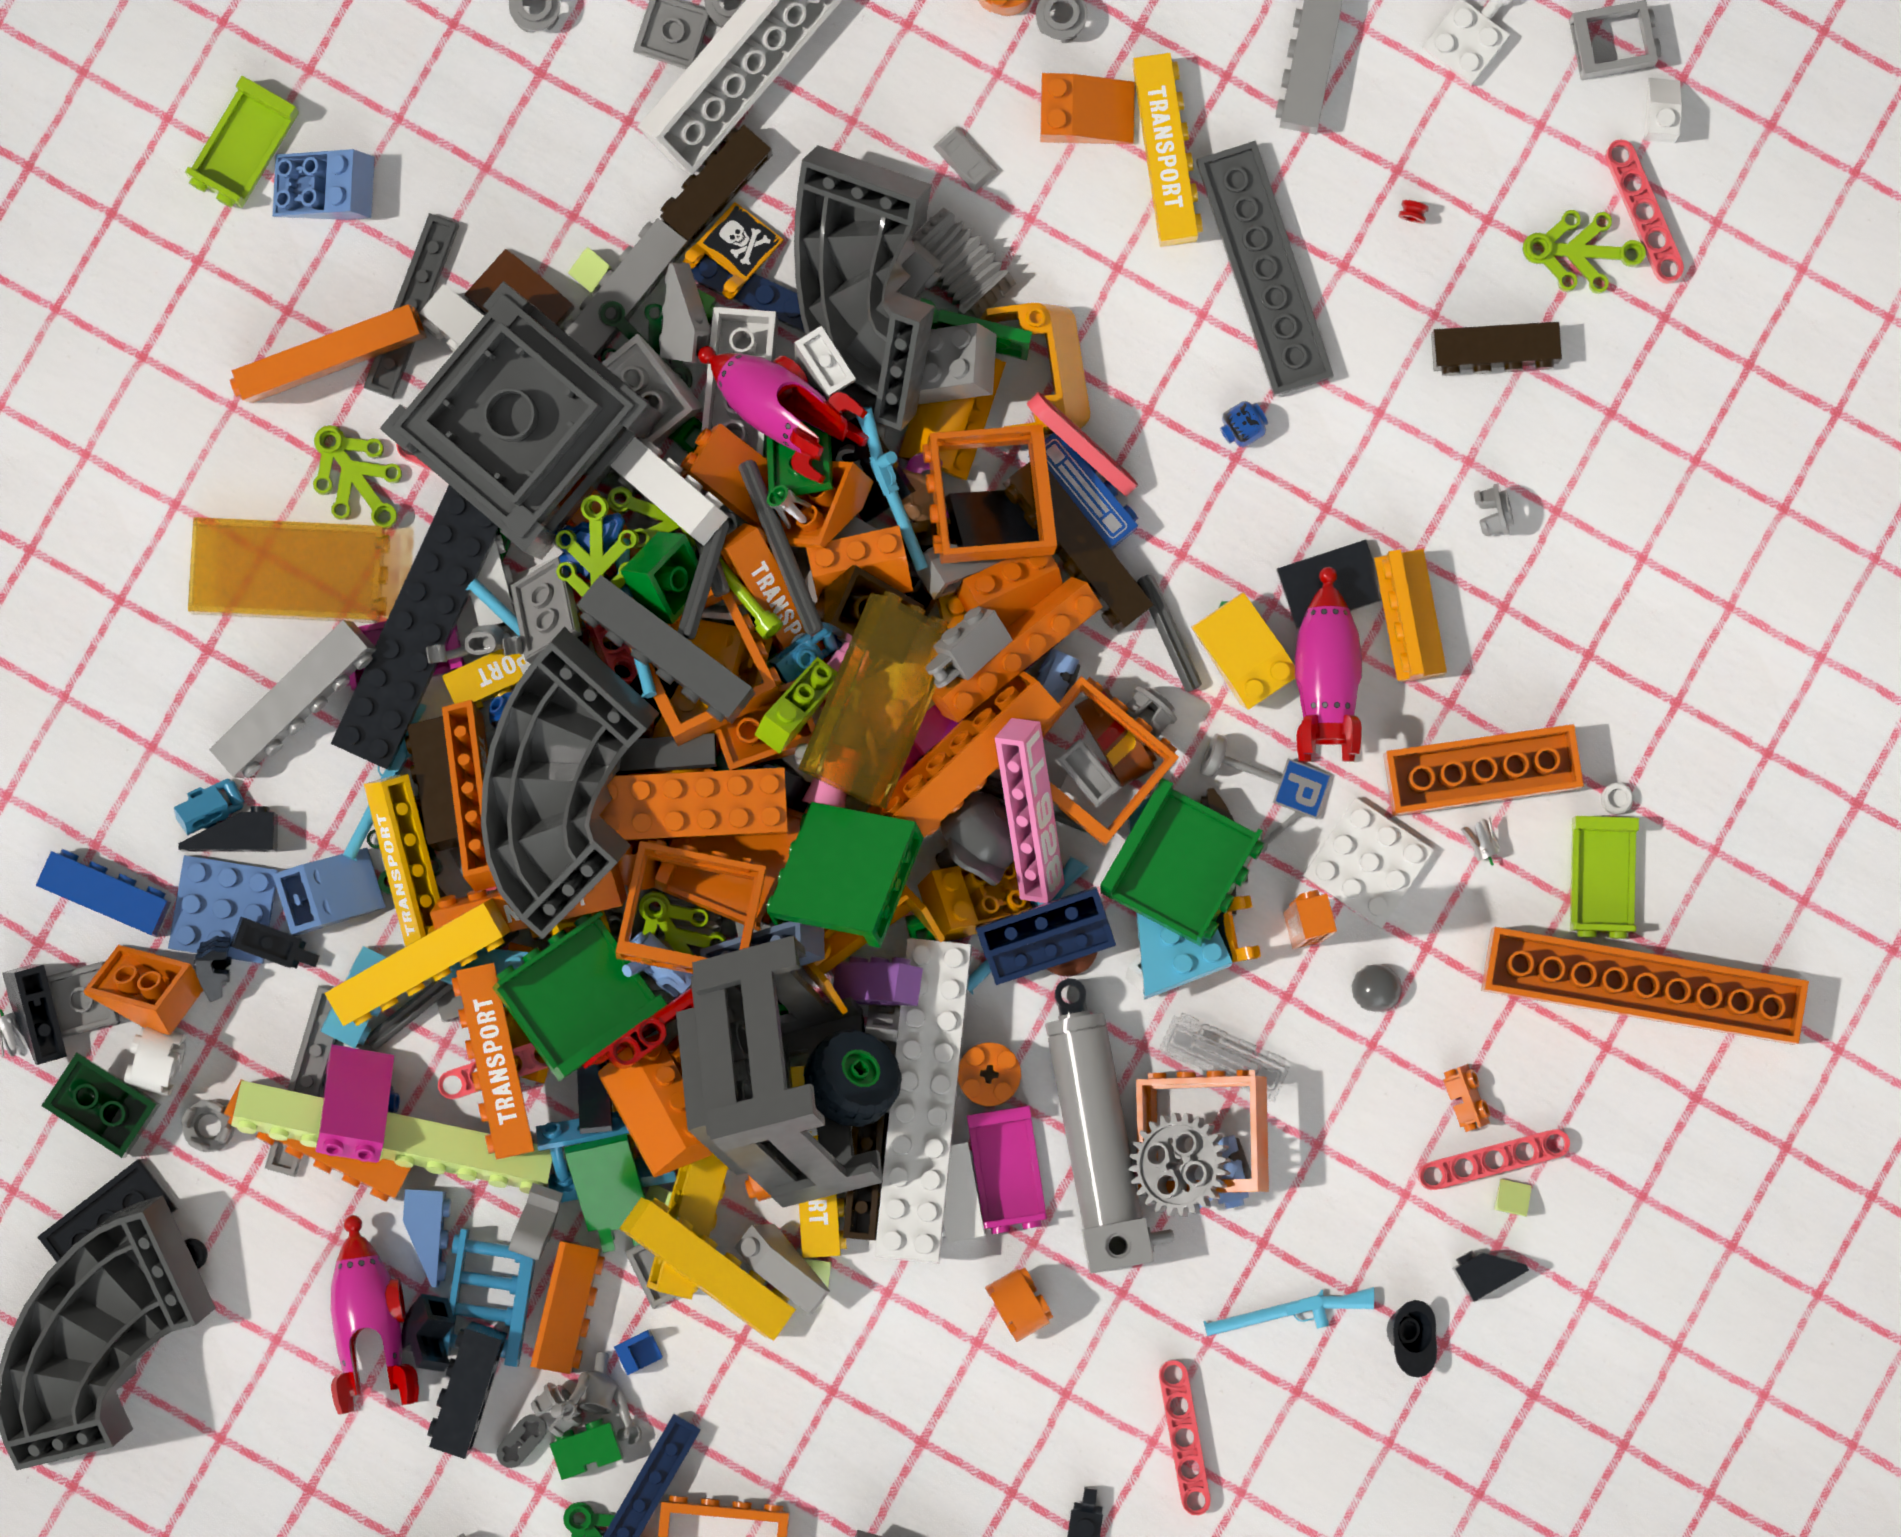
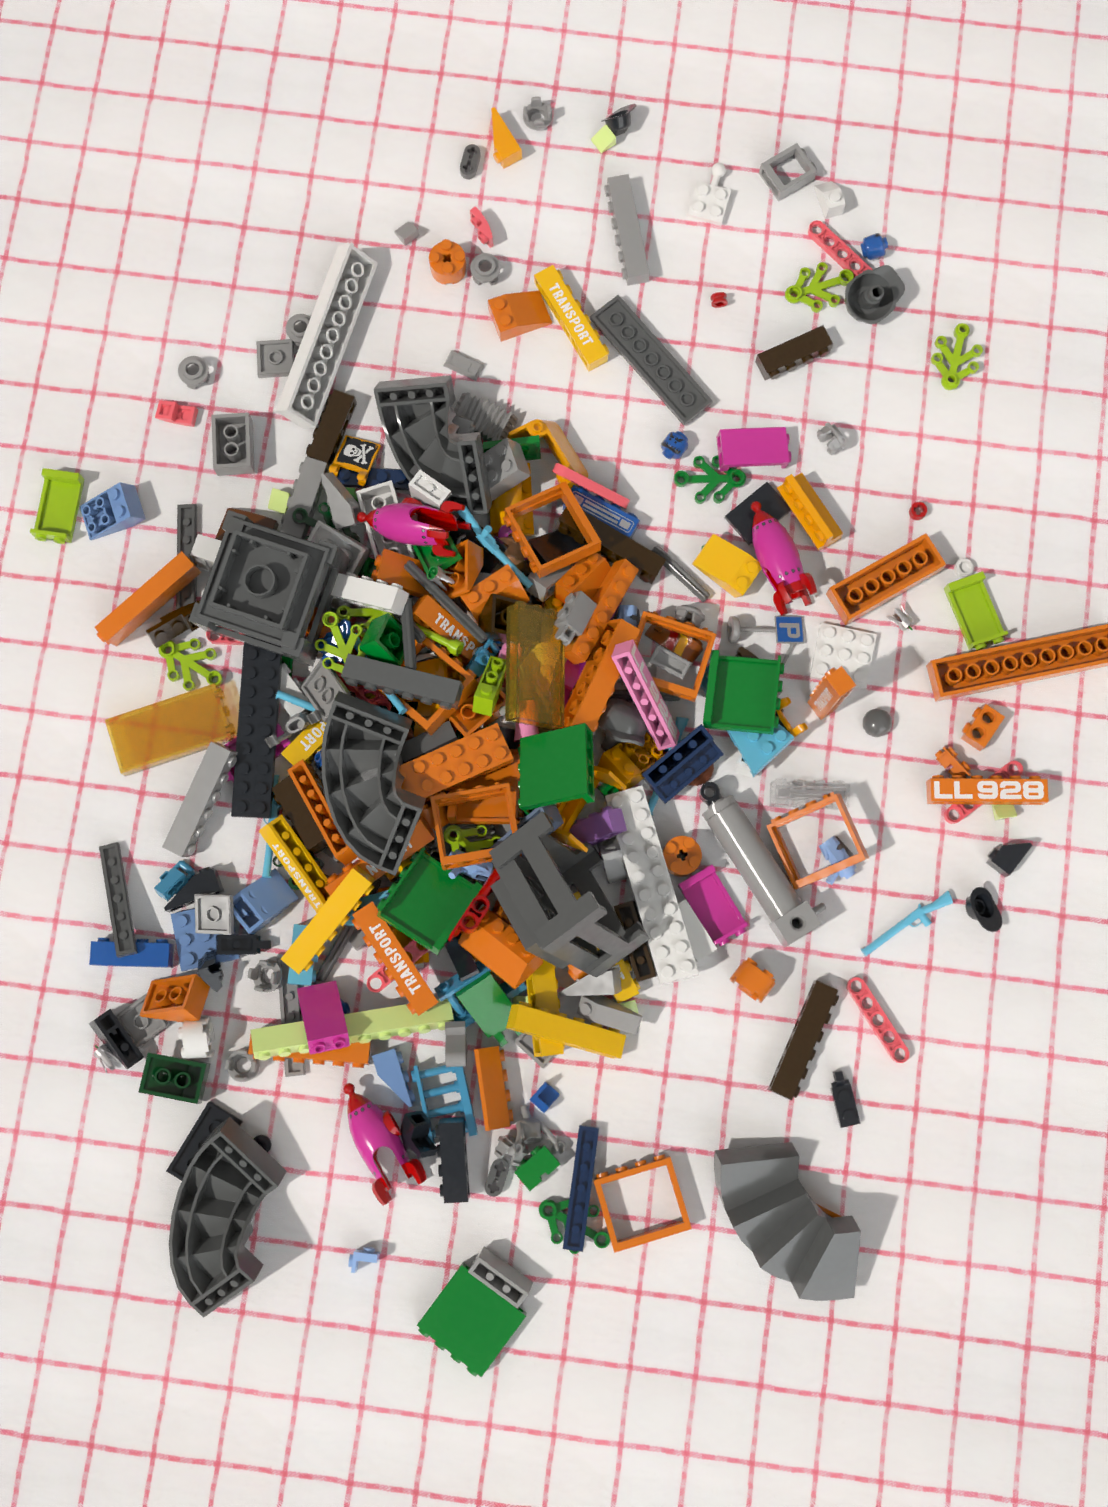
camera: 20 degrees left, 5 degrees down
(113, 803) = (118, 900): none -> dark grey tile
(250, 883) = (214, 914): none -> light grey tile
(280, 999) = (258, 972): none -> light grey piece
(287, 1476) = (366, 1255): none -> light blue bracket
(360, 405) = (172, 625): none -> dark brown slope
(482, 62) = (176, 414): none -> coral slope
(552, 151) = (232, 444): none -> light grey brick
(793, 1222) = (605, 984): none -> light grey slope
(853, 1077) = (610, 883): black wheel -> none
(1058, 1422) = (803, 1040): none -> dark brown brick
(1154, 1175) = (800, 875): light grey gear -> none
(1283, 500) = (712, 479): none -> green plant
(1365, 478) = (753, 447): none -> dark pink panel
(1495, 1161) = (987, 791): none -> orange brick
(1537, 1065) = (985, 729): none -> orange brick
(1581, 670) = (922, 506): none -> red bush
(1659, 304) = (873, 294): none -> dark grey piece
(1698, 220) = (874, 246): none -> blue head
(1749, 458) = (955, 359): none -> lime plant

